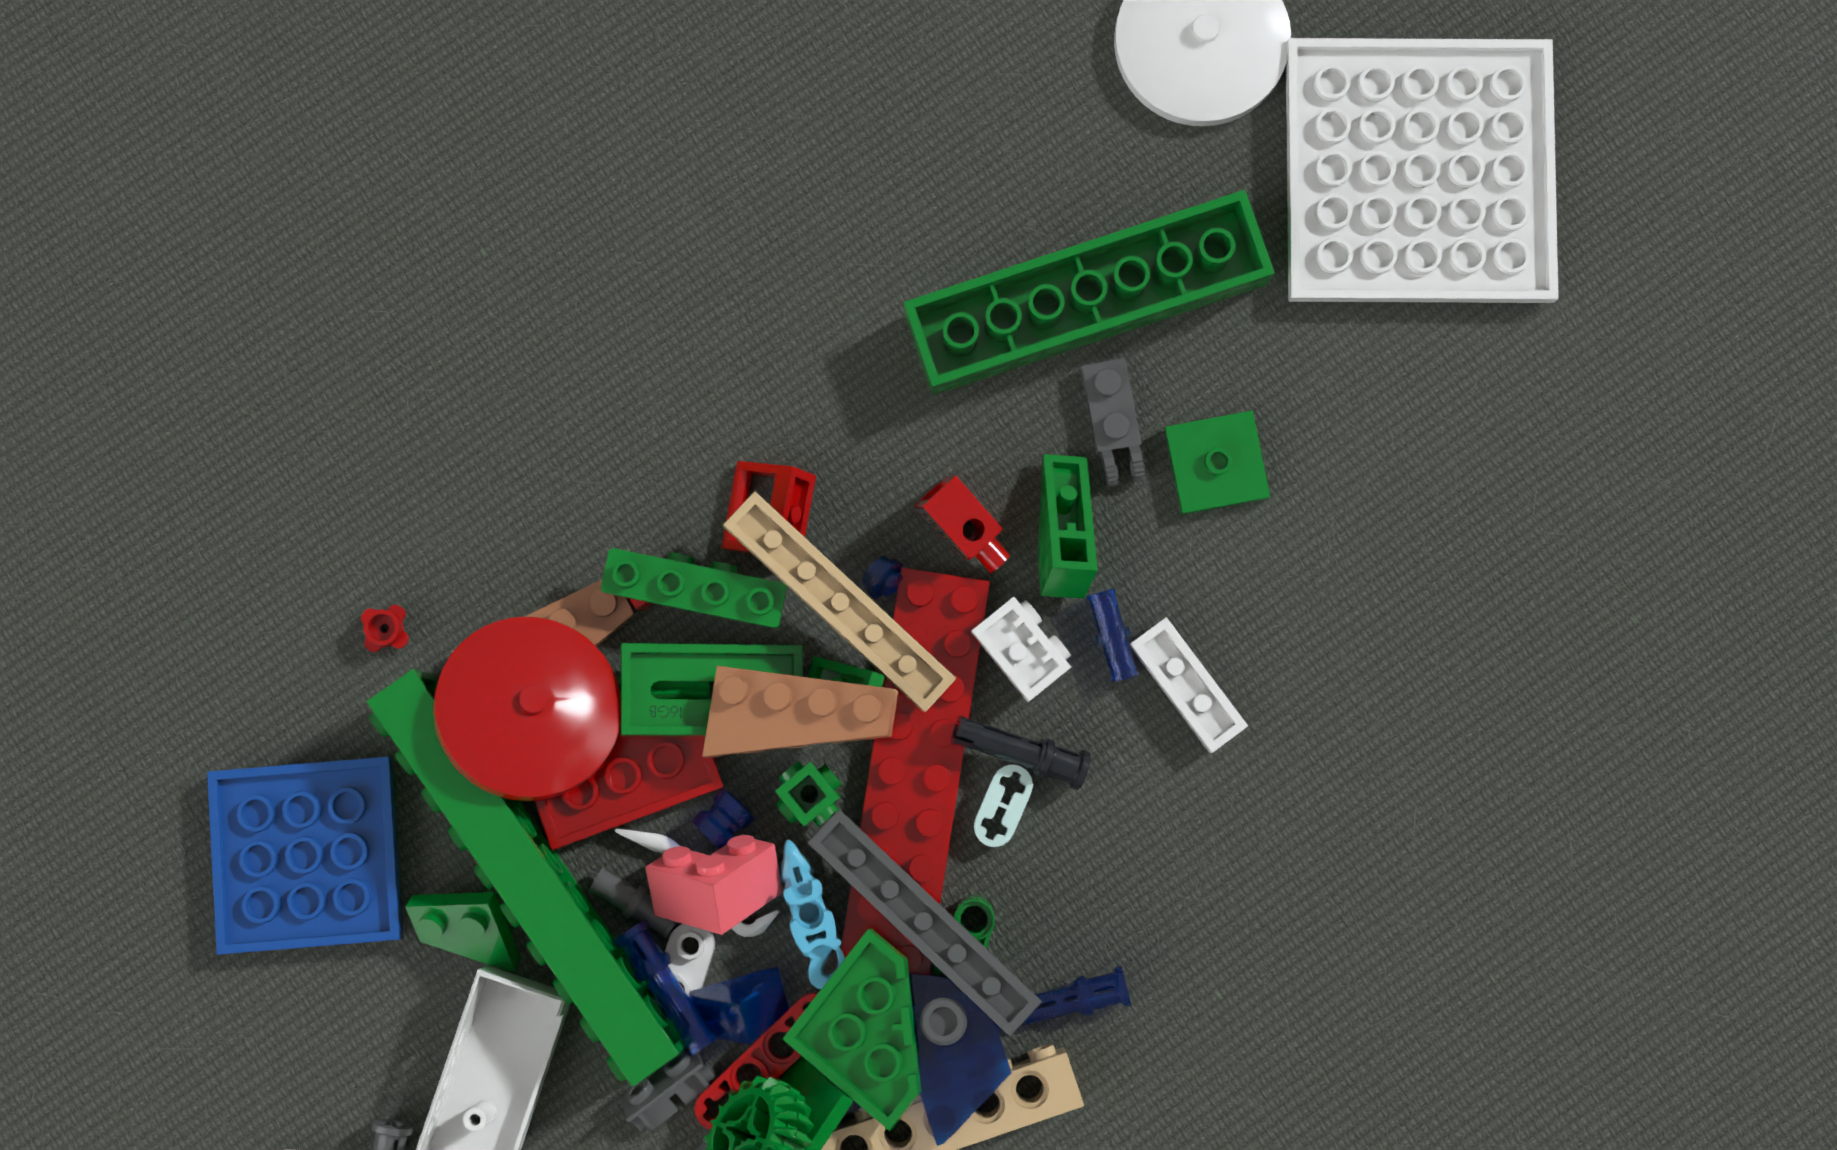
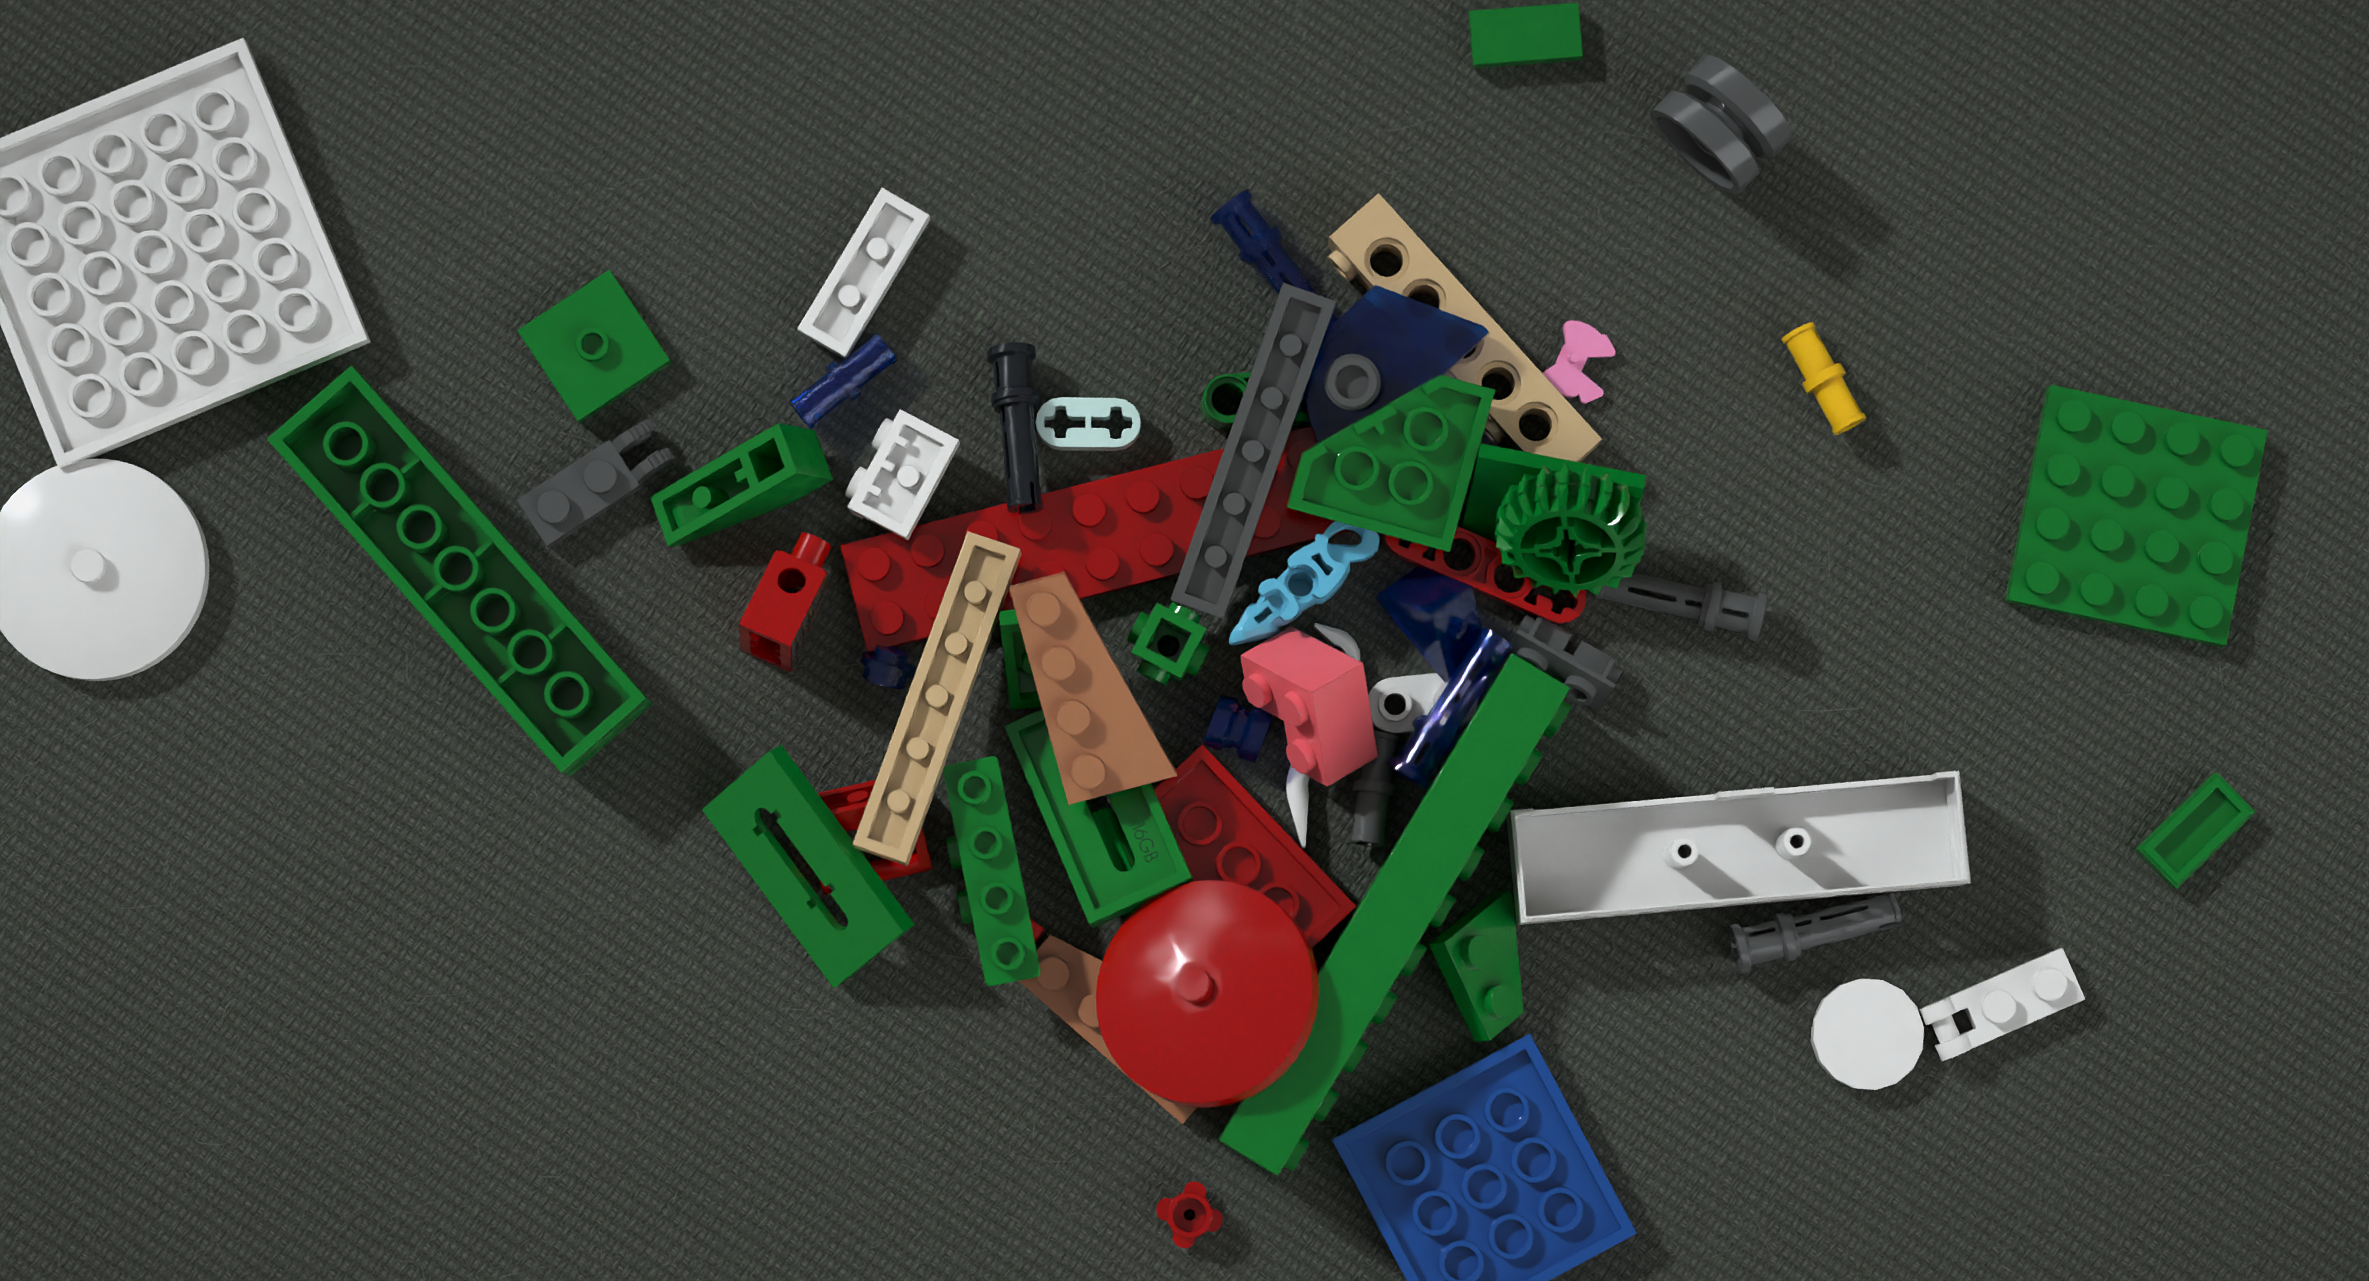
camera: 115 degrees left, 0 degrees up
(704, 487) = (870, 907): none -> green piece

